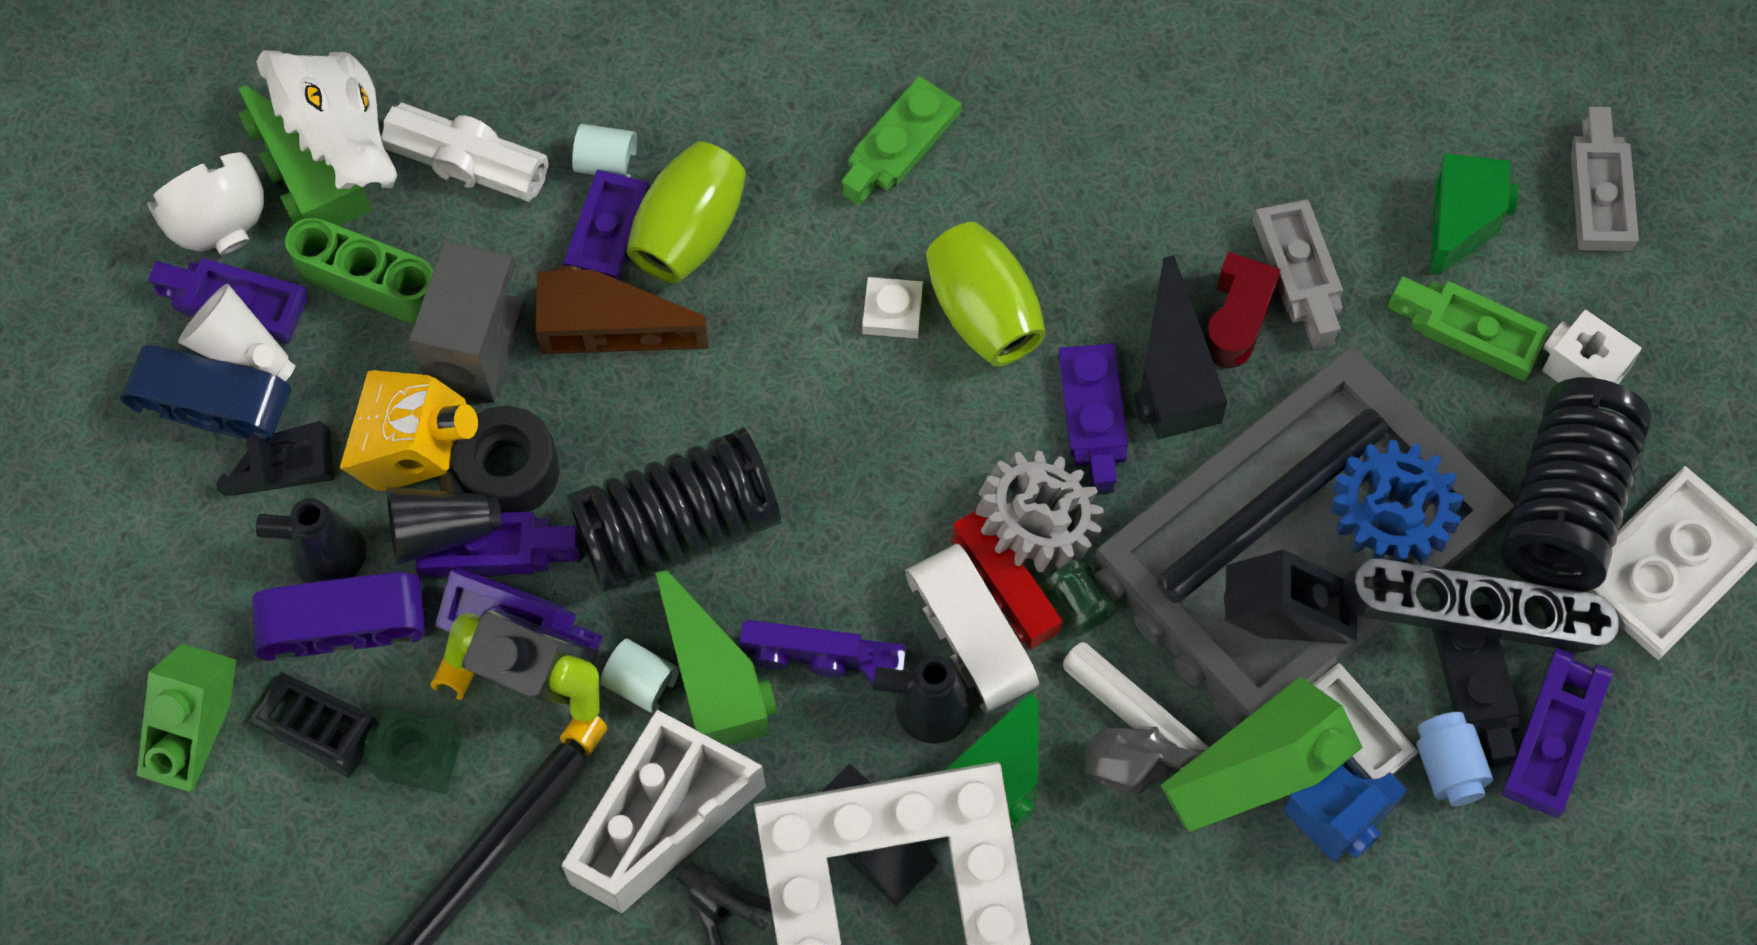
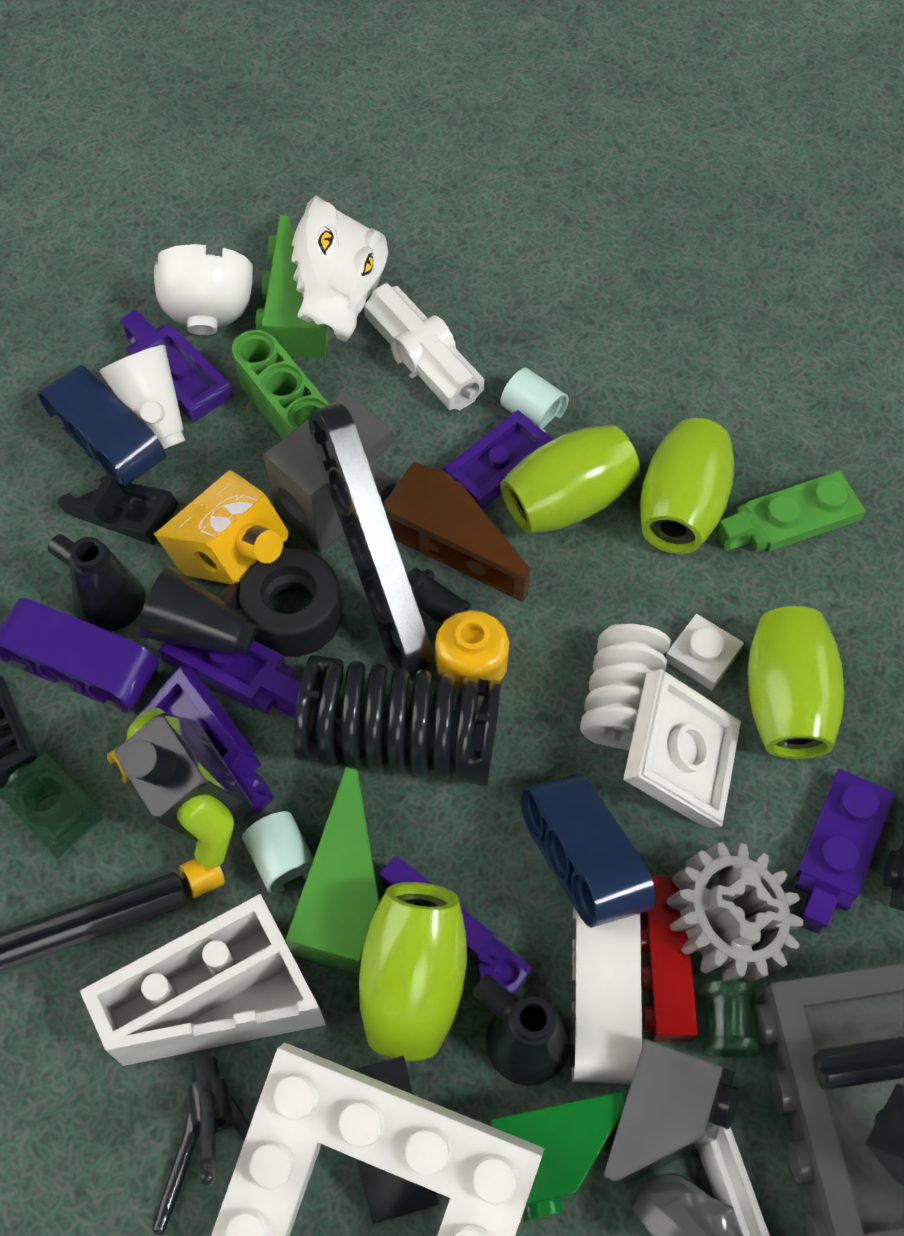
camera: 30 degrees right, 5 degrees down
(553, 364) = (370, 538): none -> beam
(629, 388) = (434, 597): none -> black pin
(695, 413) = (472, 646): none -> yellow head
(795, 163) = (687, 486): none -> lime piece
(815, 697) = (412, 970): none -> lime piece
(844, 374) = (618, 681): none -> white piece
(894, 527) = (587, 850): none -> dark blue beam
(925, 402) = (682, 749): none -> white tile
(1073, 686) = (669, 1111): none -> slope

